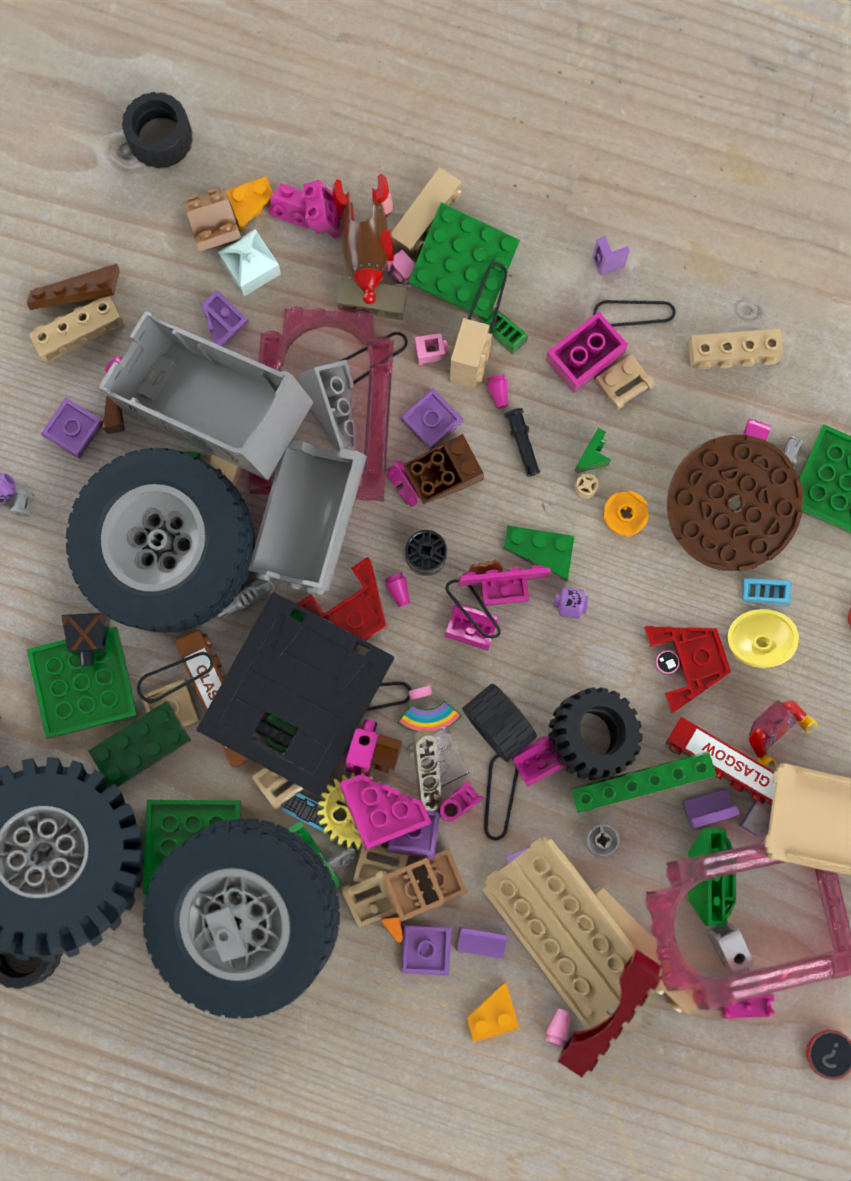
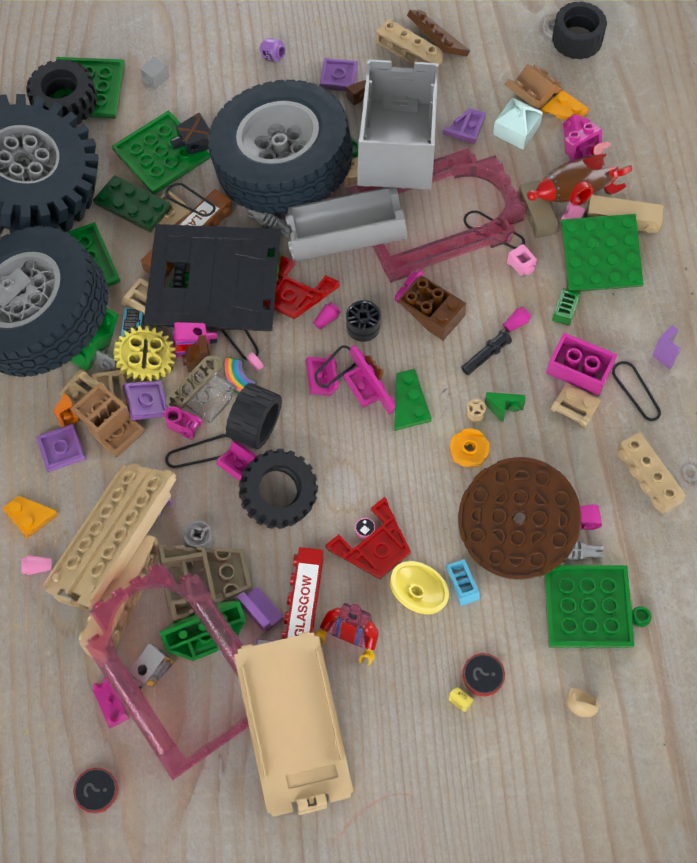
camera: 65 degrees right, 15 degrees down
(22, 503) = (269, 67): light grey bush -> none
(331, 392) = (448, 213): light grey wedge -> none
(381, 811) = (149, 366): dark pink plate -> none
(431, 419) = (470, 286): medium lavender tile -> none
(470, 353) = (530, 280): tan brick -> none
(482, 942) = (81, 483): medium lavender panel -> none
(500, 294) = (580, 272): black piece -> none
(571, 602) = (376, 435): medium lavender head -> none
(585, 1046) = (86, 580): dark red arch -> none
(643, 781) = (257, 541): green brick -> none
(652, 838) = (220, 570): none -> dark tan wedge

